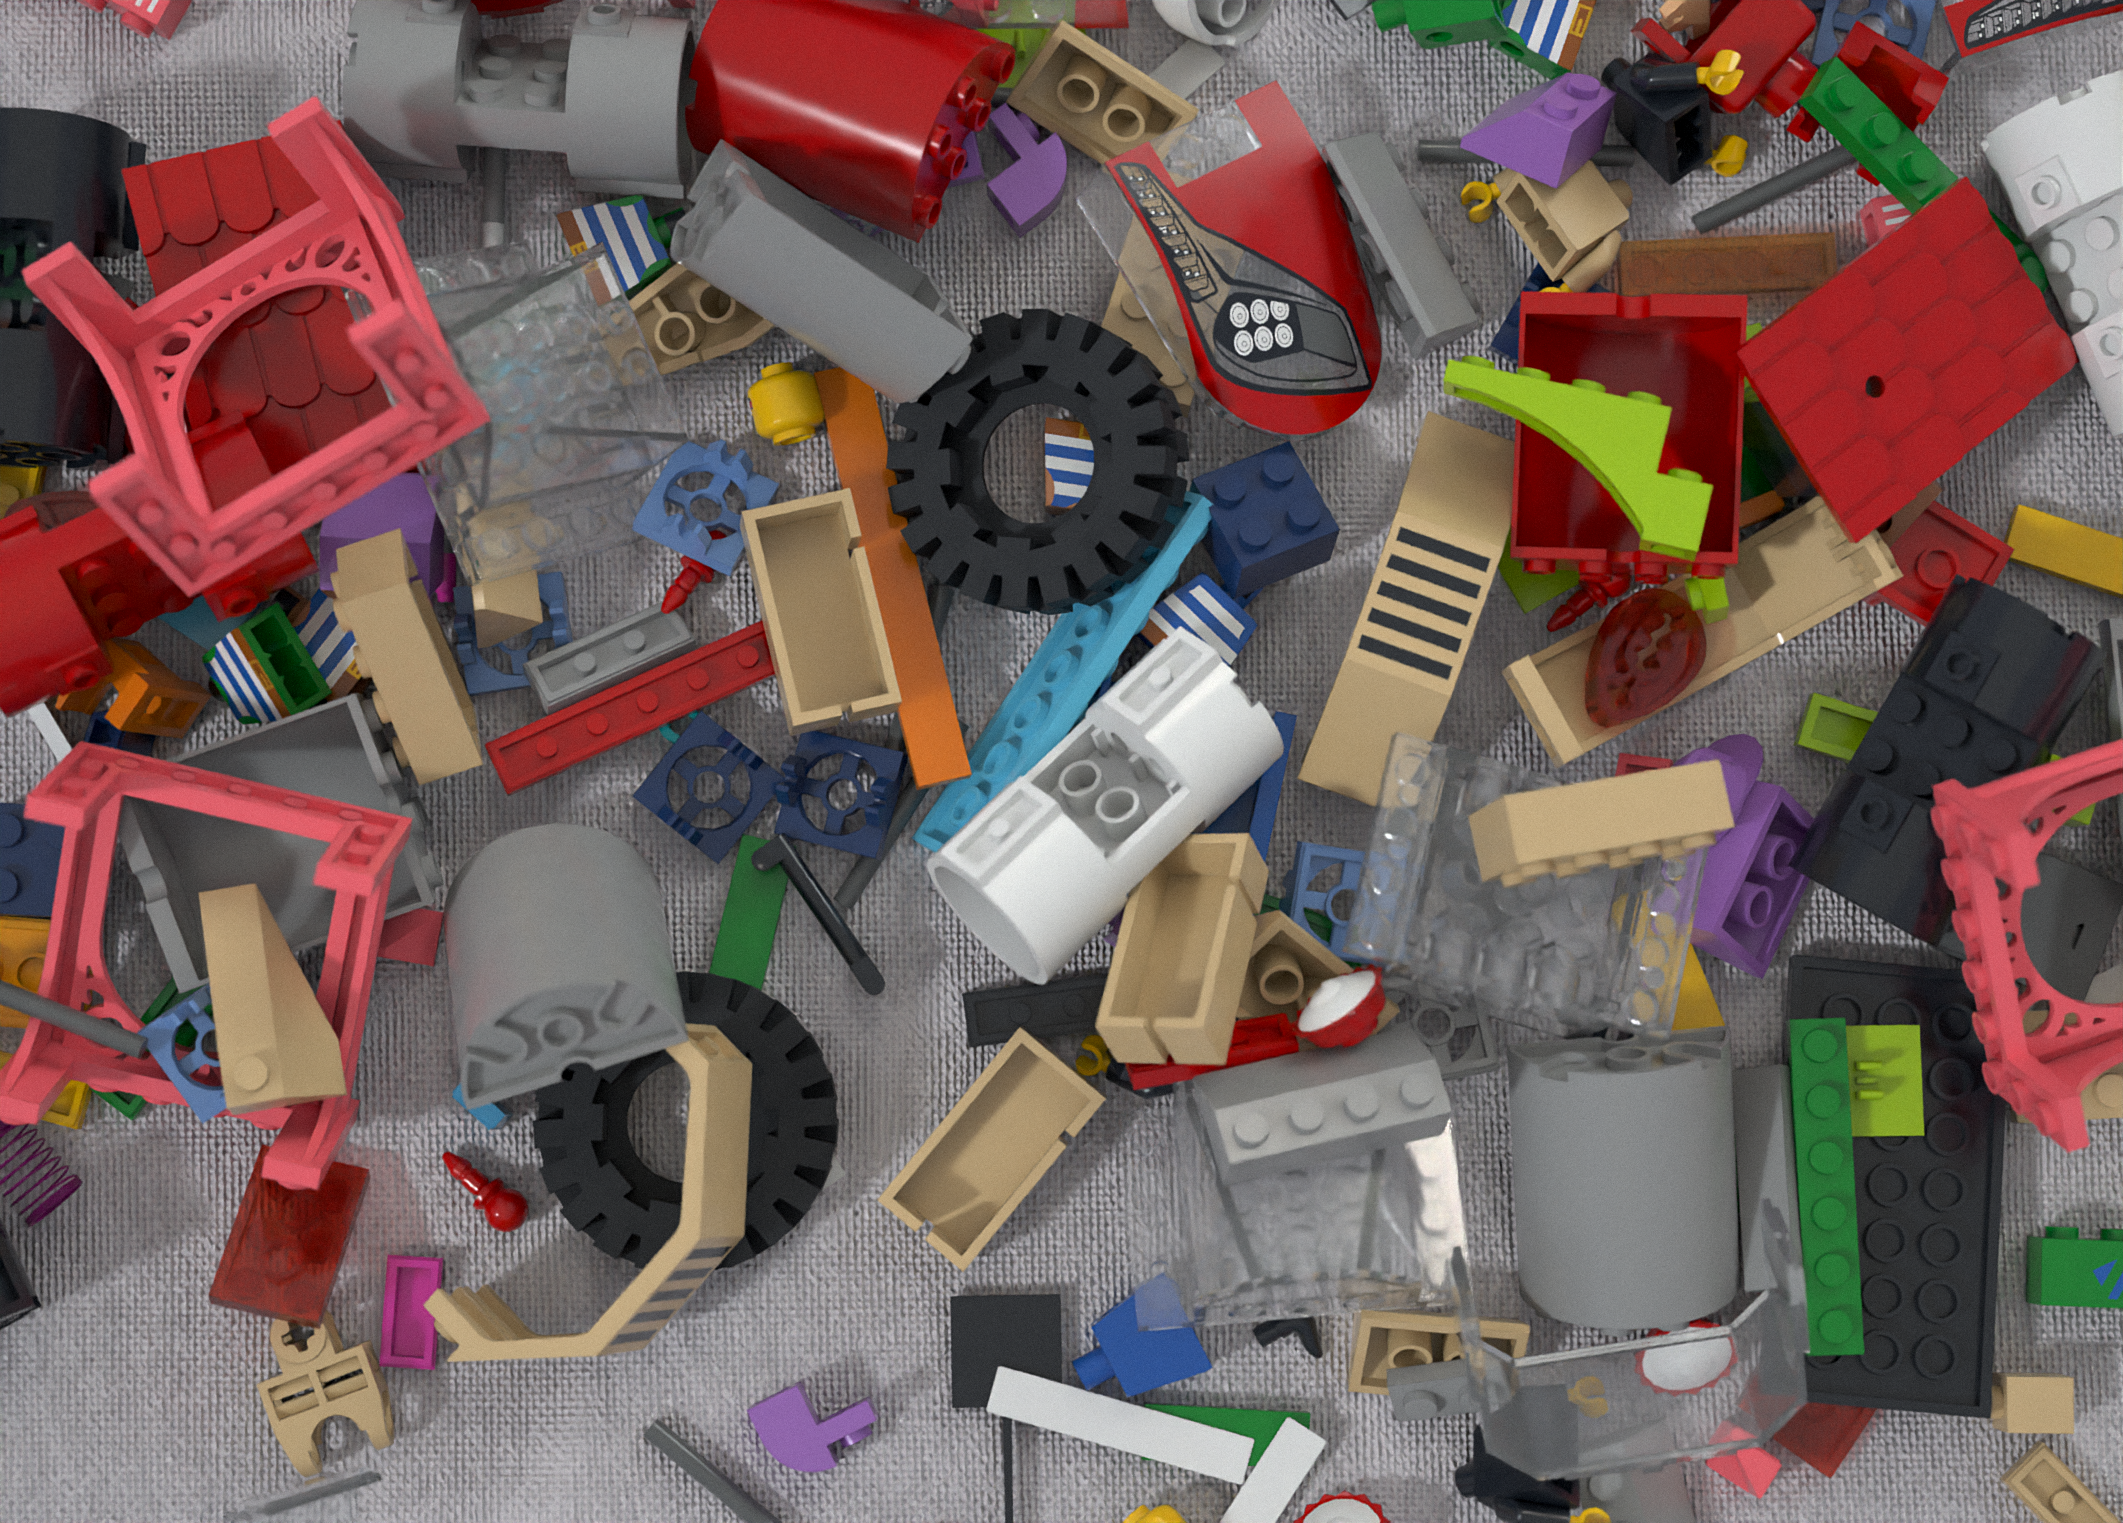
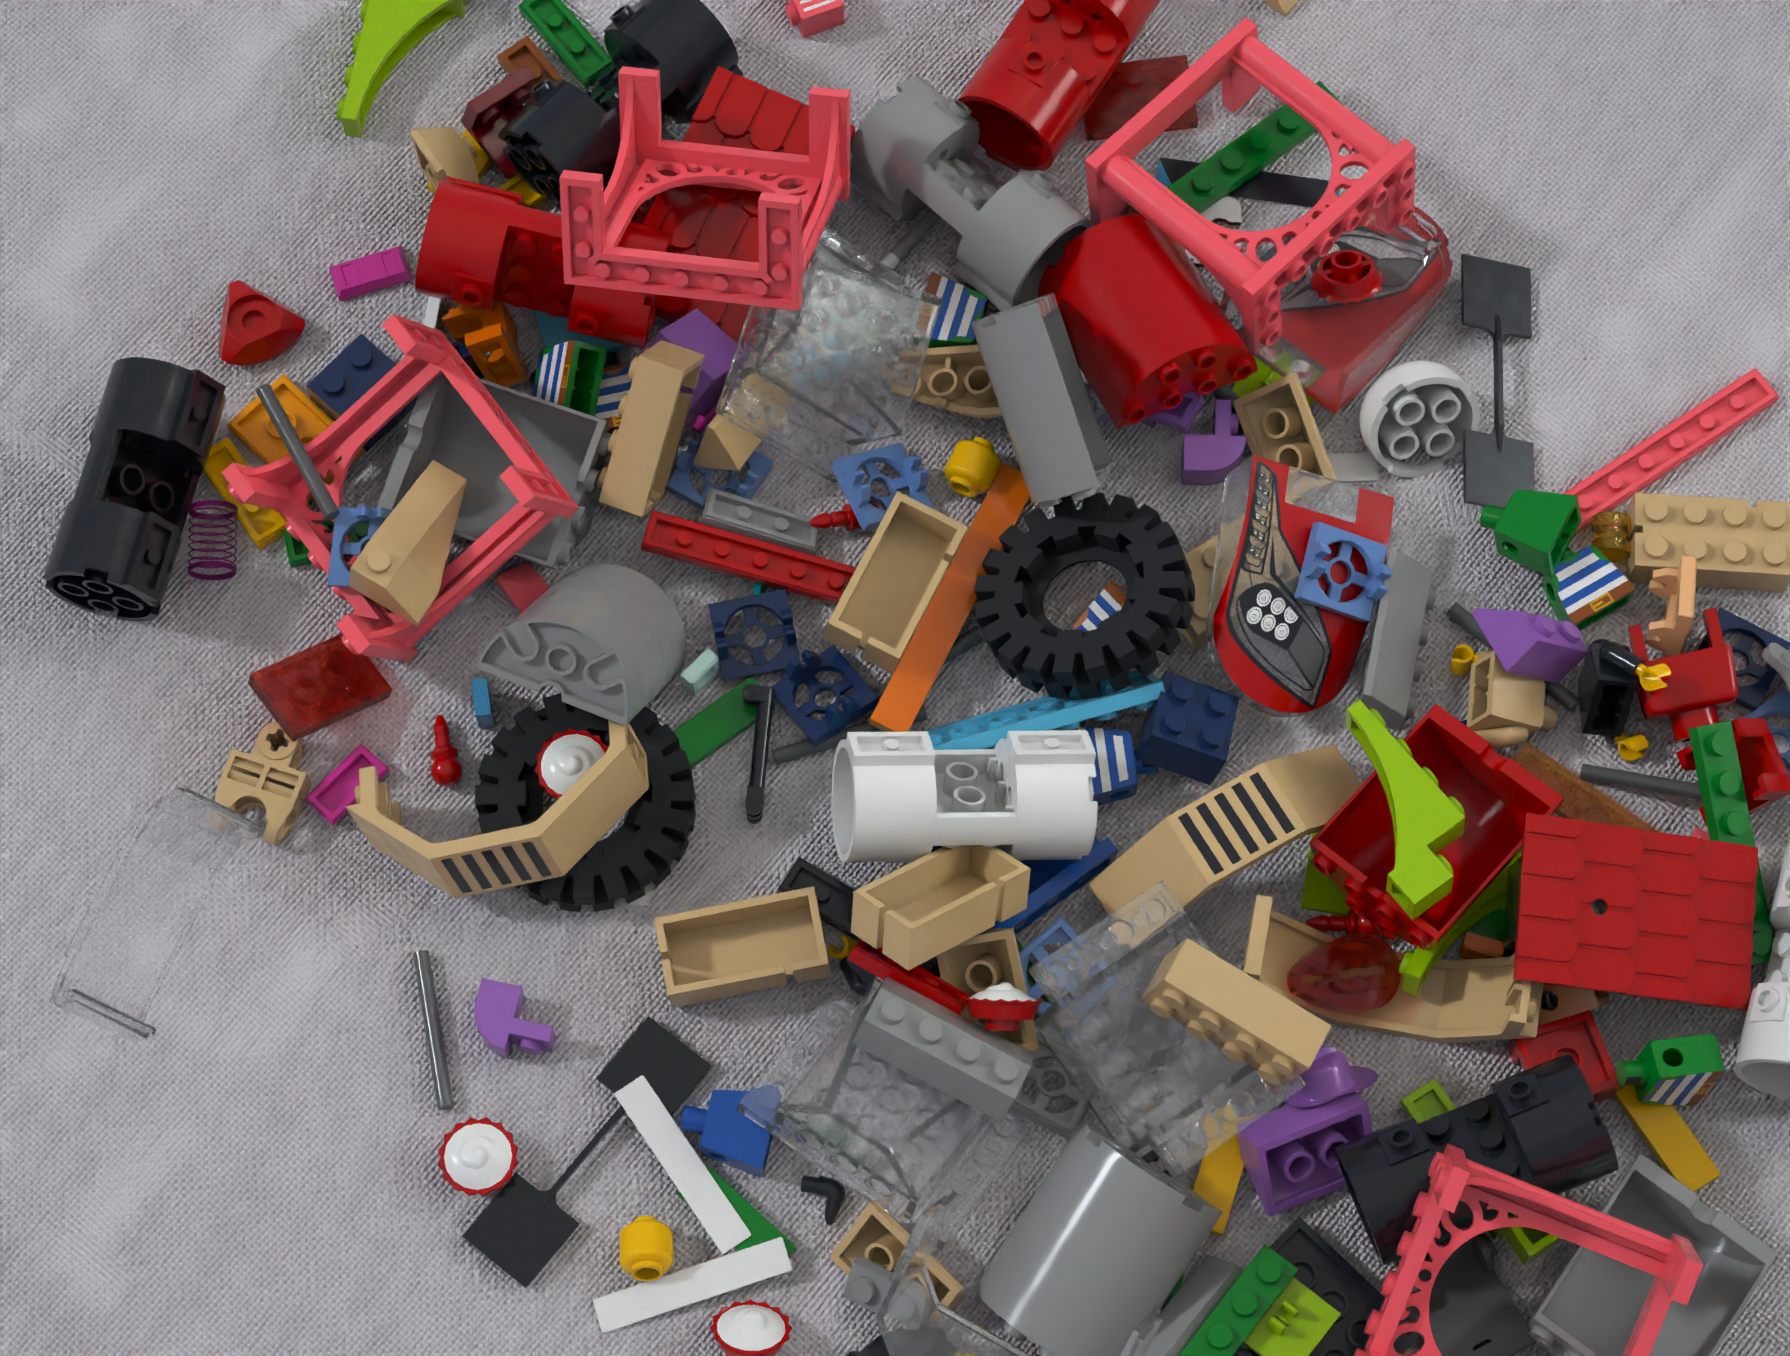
camera: 45 degrees right, 15 degrees down
(648, 1110) = (567, 759): none -> white piece
(687, 877) = (700, 672): none -> light aqua tile
(1263, 221) = (1314, 566): none -> medium blue piece
(2047, 497) = (1673, 1070): none -> green torso

